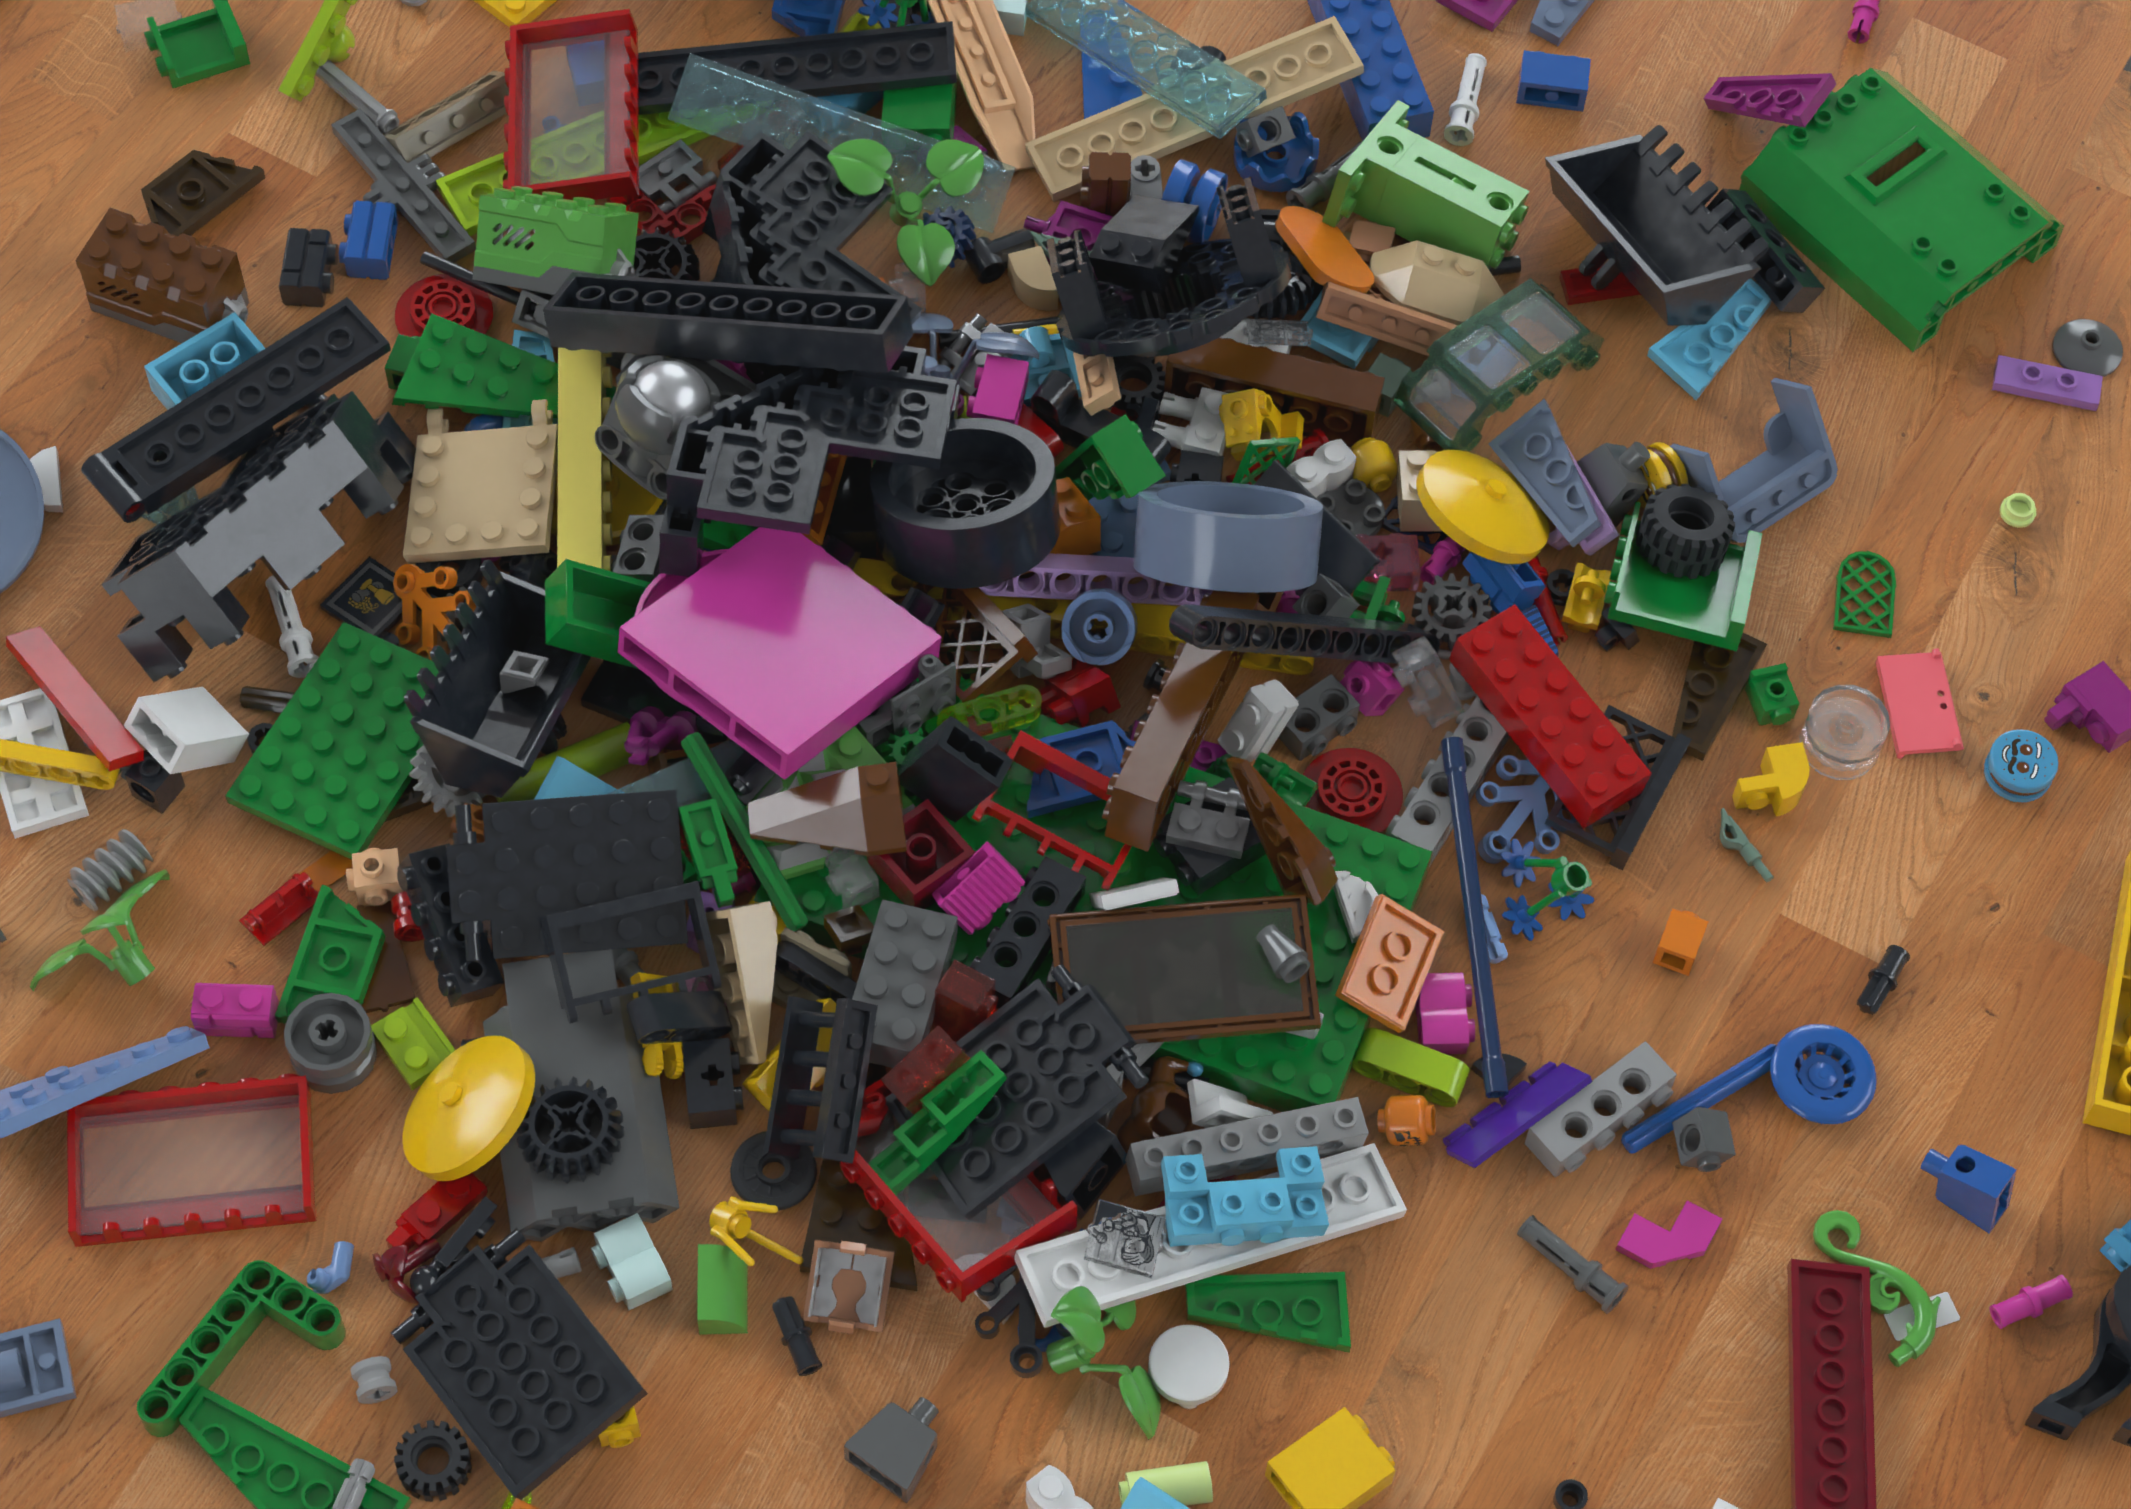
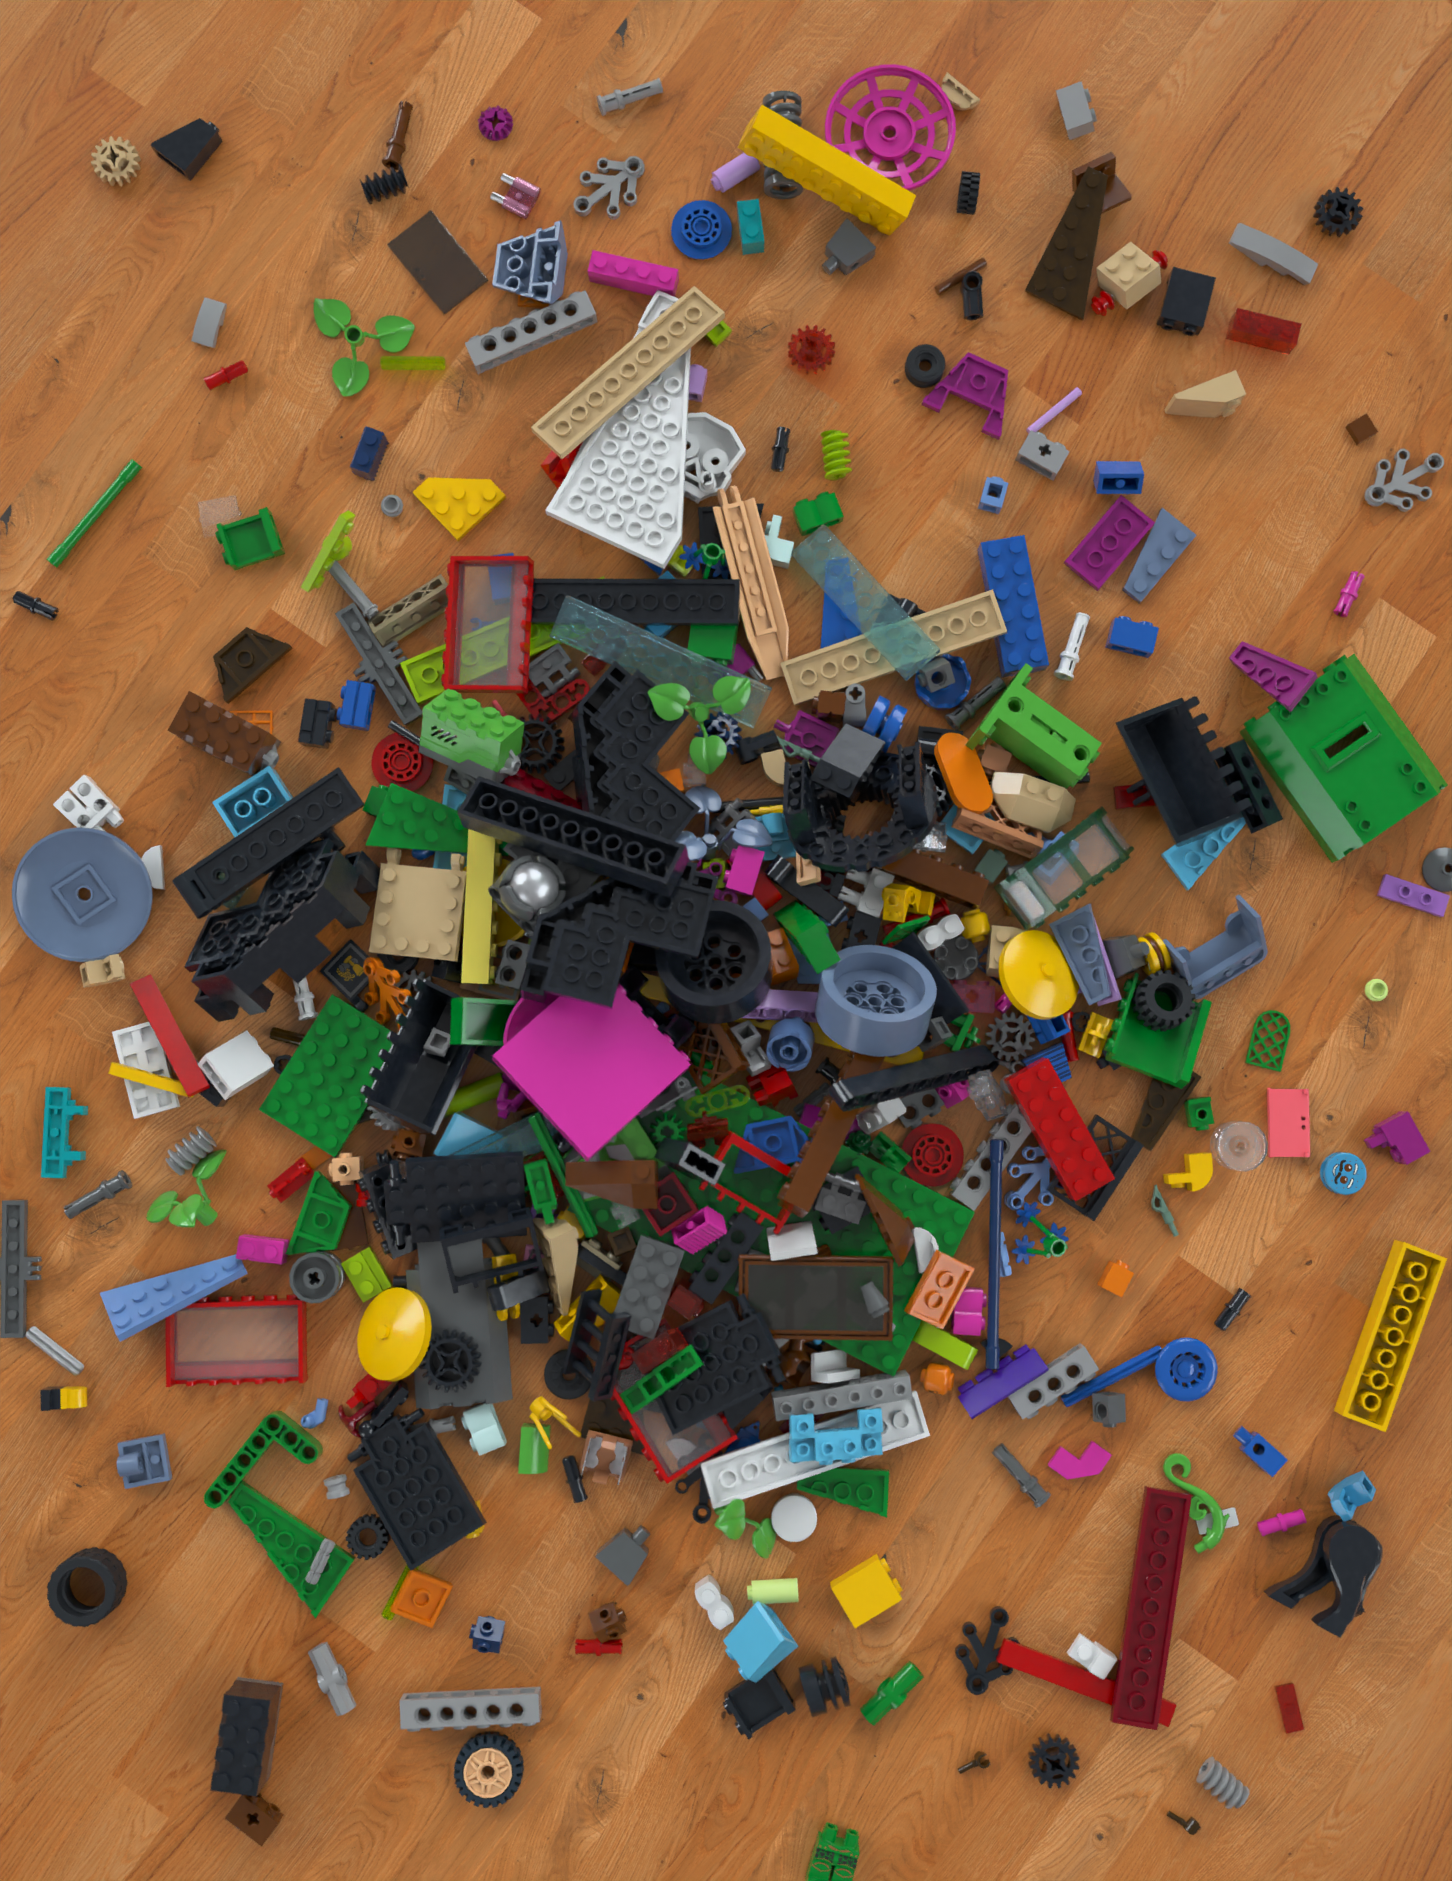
camera: 10 degrees right, 25 degrees up
(1125, 1238) = (763, 1456): piece -> none

